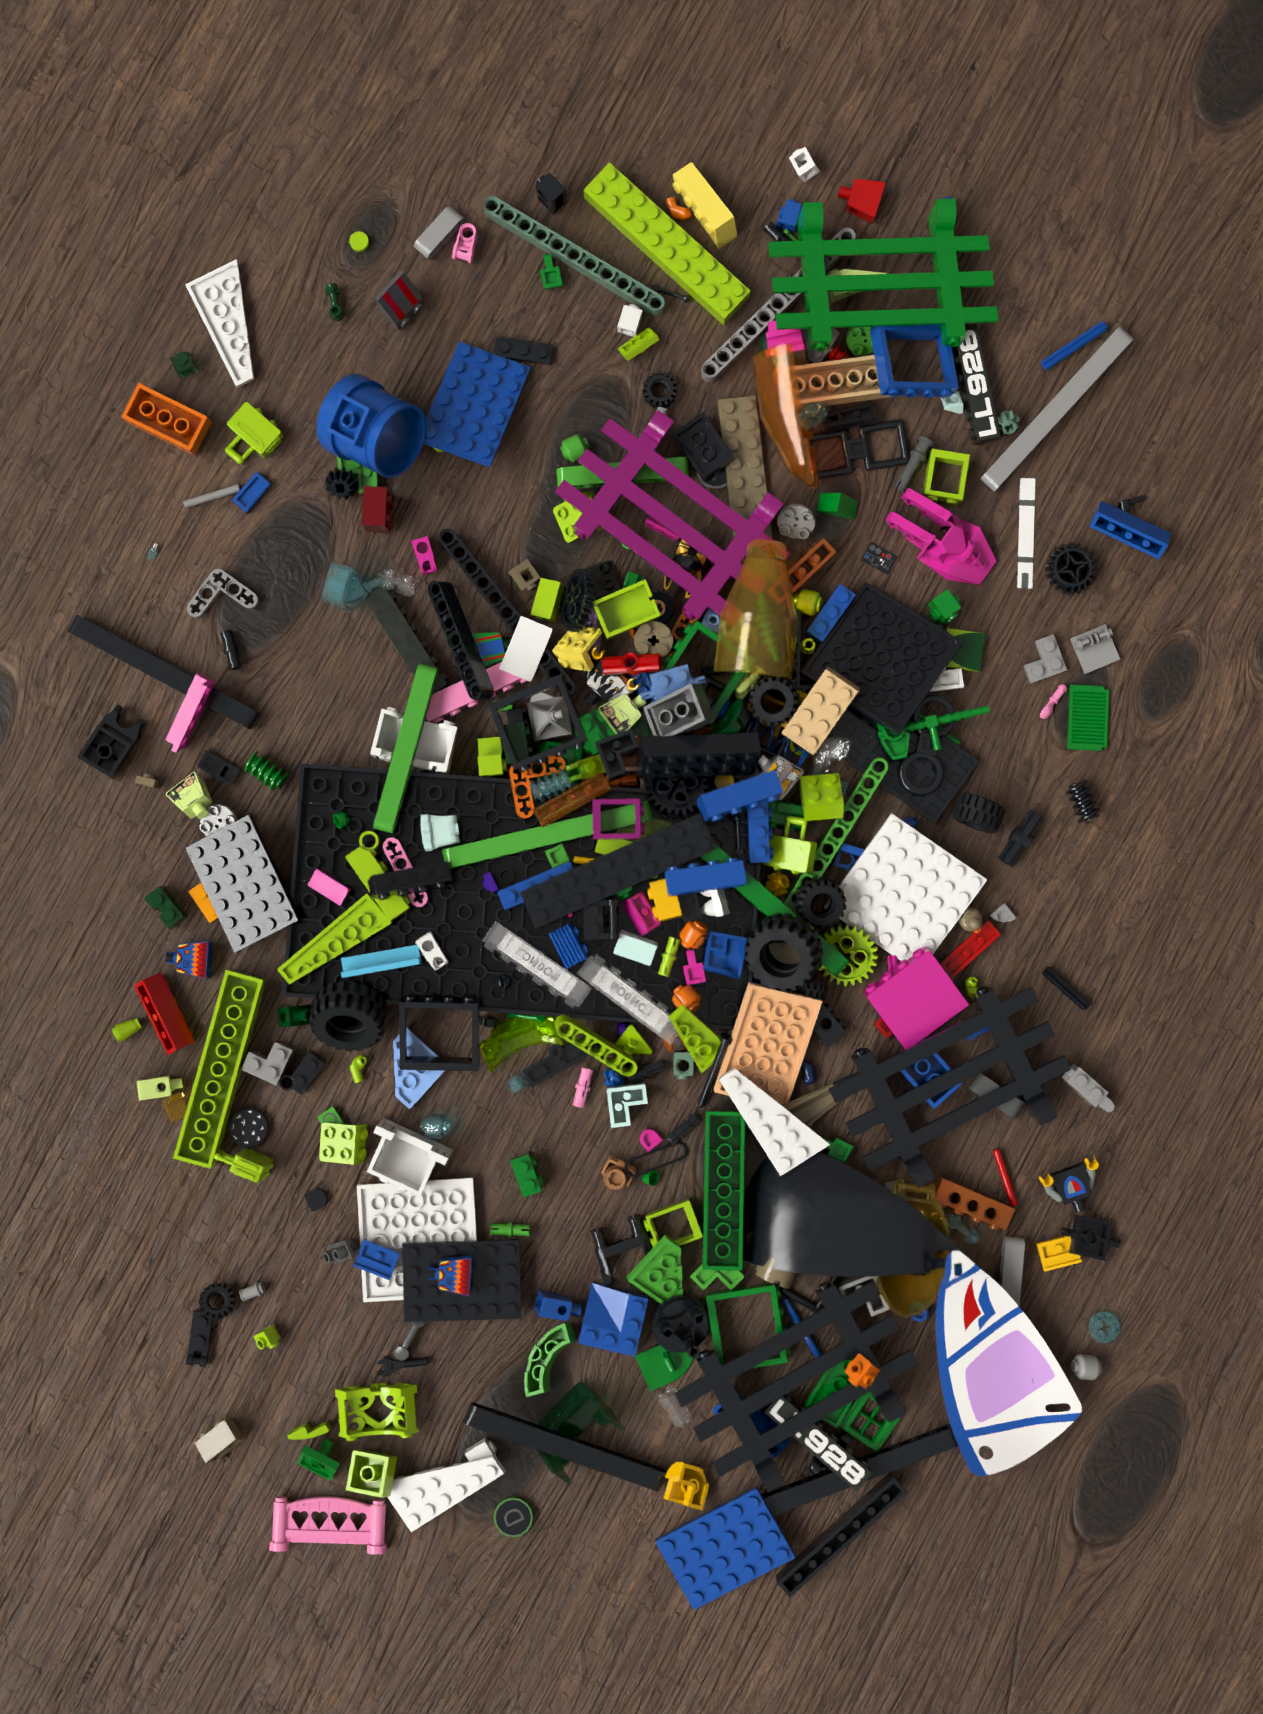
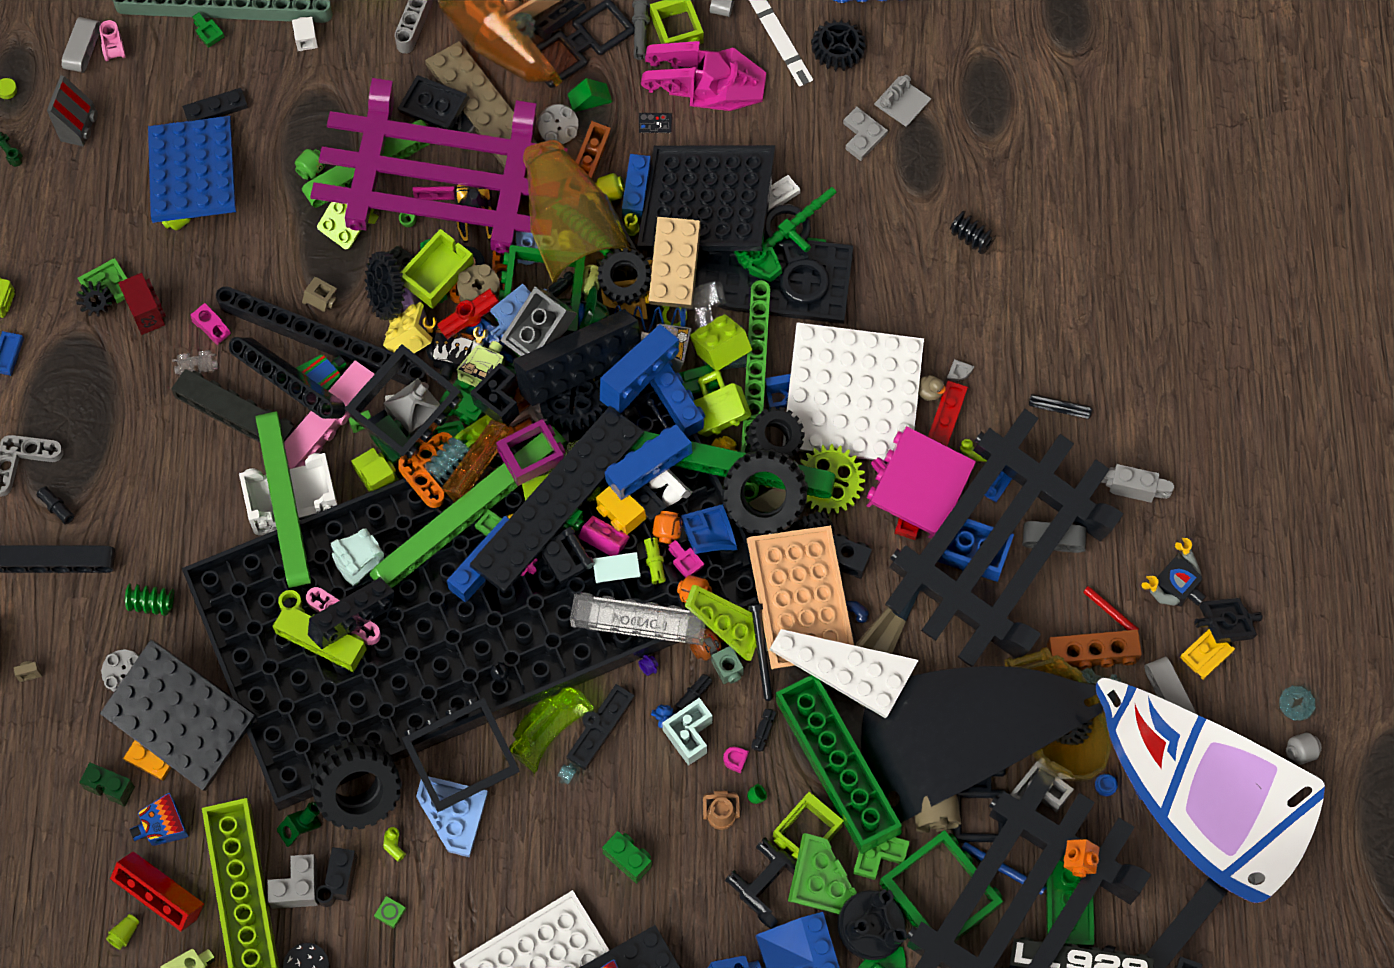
camera: 30 degrees left, 20 degrees down
(189, 711) = (41, 579): fence -> none
(191, 796) = (80, 661): yellowish green torso -> none
(218, 768) = (97, 624): black slope -> none
(328, 887) = (270, 668): slope -> none
(340, 819) = (250, 598): green hinge -> none
(343, 1143) = (415, 925): lime bracket -> none
(345, 588) = (146, 387): clear light blue piece -> none
(348, 930) = (309, 705): lime wing -> none
(371, 426) = (99, 222): blue cylinder -> none
(381, 961) = (363, 713): medium azure fence -> none
(405, 1157) = (490, 903): white windscreen -> none
(432, 951) = (410, 675): white leg -> none
(436, 1126) = (506, 858): clear light blue head -> none
(488, 1021) = (507, 725): black tile -> none
(490, 883) = (435, 580): dark purple plate -> none
(510, 1229) = (640, 924): bright green pin -> none
(526, 648) = (356, 353): white sticker -> none
(537, 964) = (525, 634): clear brick -> none
(539, 1018) = (556, 694): green hinge -> none
(547, 600) = (355, 306): lime hinge -> none
(568, 945) = (547, 600): blue brick -> none
(582, 1087) = (638, 742): bright pink pin -> none
(590, 1038) = (638, 687): lime beam -> none
(633, 1042) = (663, 672): lime piece -> none
(638, 344) = (323, 49): lime plate -> none
(655, 379) = (359, 69): black tyre -> none
(658, 1167) = (756, 781): black piece -> none
(838, 1149) = (929, 664): green plate -> none
(854, 1411) = (1102, 919): green piece -> none
(944, 607) = (740, 127): green brick -> none
(970, 653) = (787, 160): dark green tile -> none
(978, 813) = (880, 286): black tyre -> none
(1021, 838) = (934, 294): black piece -> none
(1048, 709) = (891, 174): bright pink piece -> none
(1088, 717) = (932, 162): green window -> none

